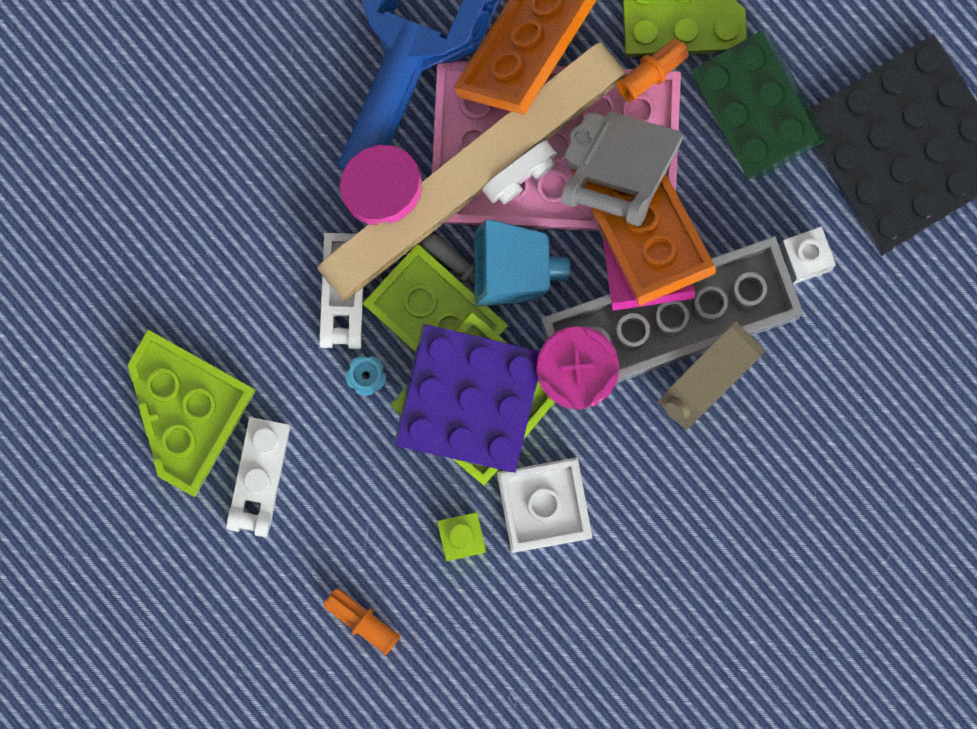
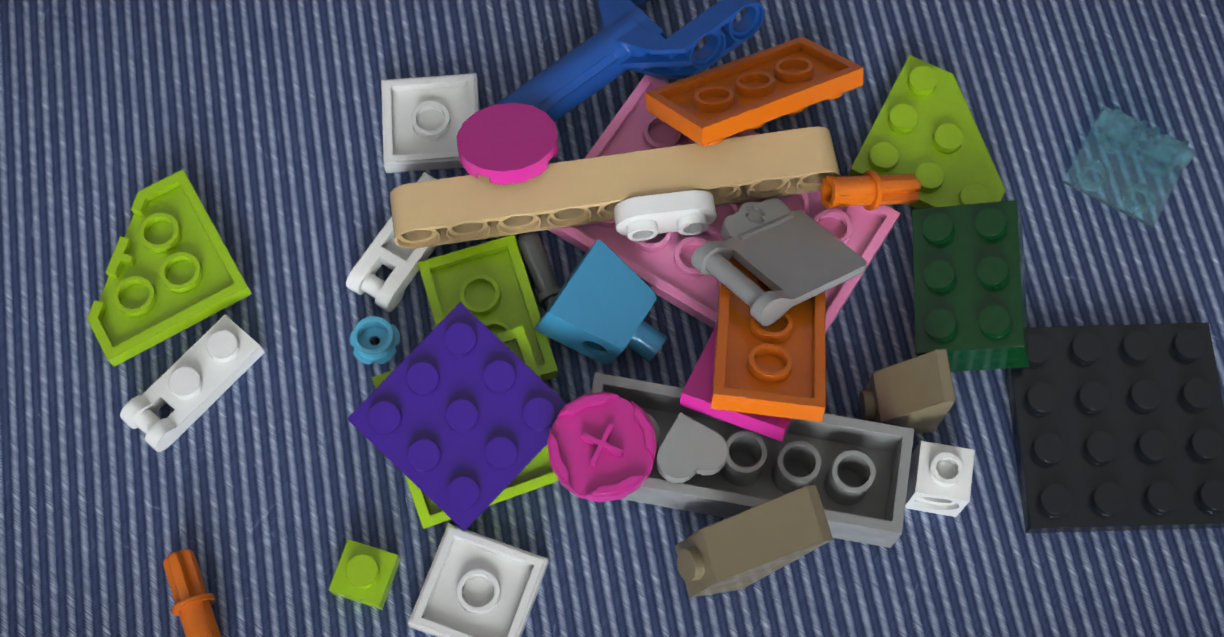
camera: 30 degrees right, 15 degrees down
(297, 187) = (424, 120): none -> white tile
(636, 336) = (690, 450): none -> light grey tile
(756, 211) = (910, 393): none -> dark tan slope

